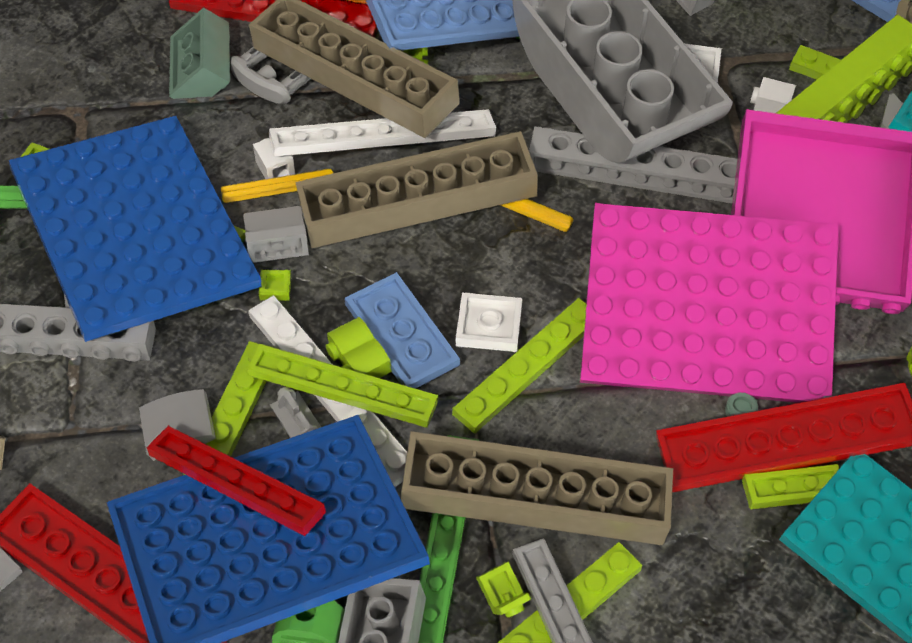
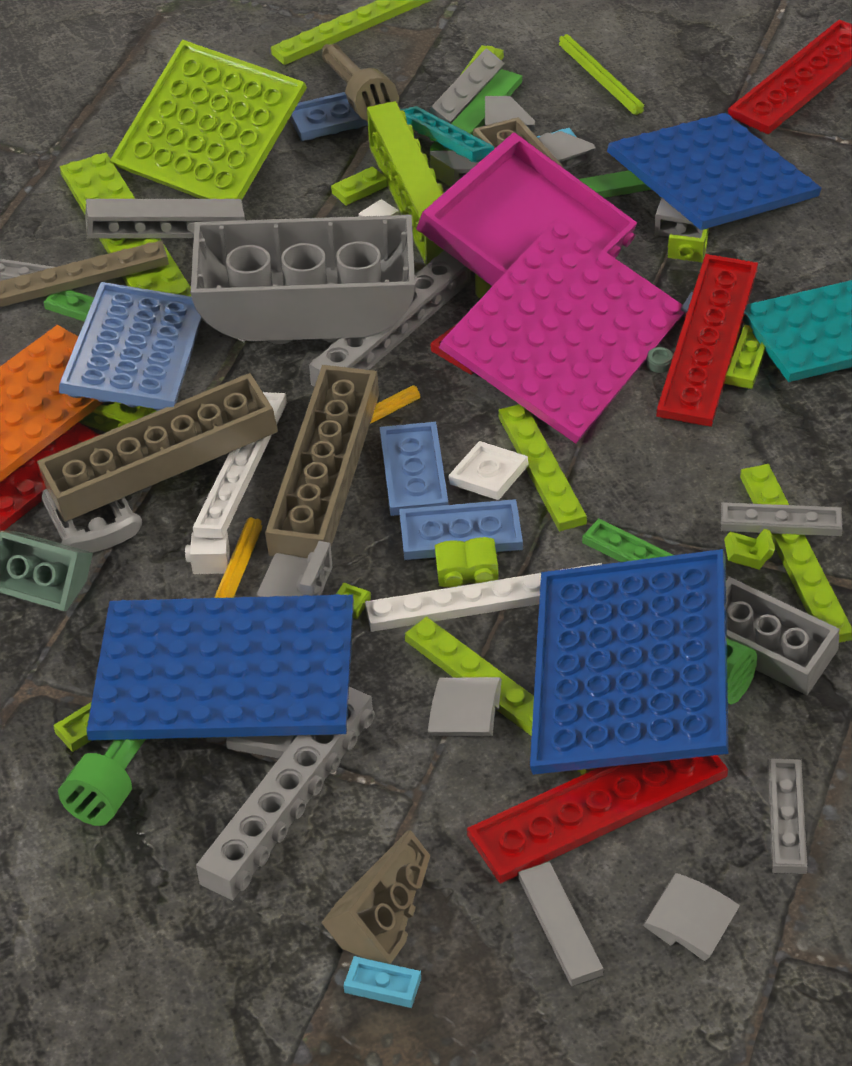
camera: 60 degrees left, 10 degrees down
(237, 480) = (569, 659): red plate -> none
(293, 413) = (499, 627): light grey hinge -> none
(343, 385) = (501, 576): lime plate -> none
(460, 263) = (413, 466): none -> medium blue plate
(537, 488) = (675, 487): dark tan brick -> none

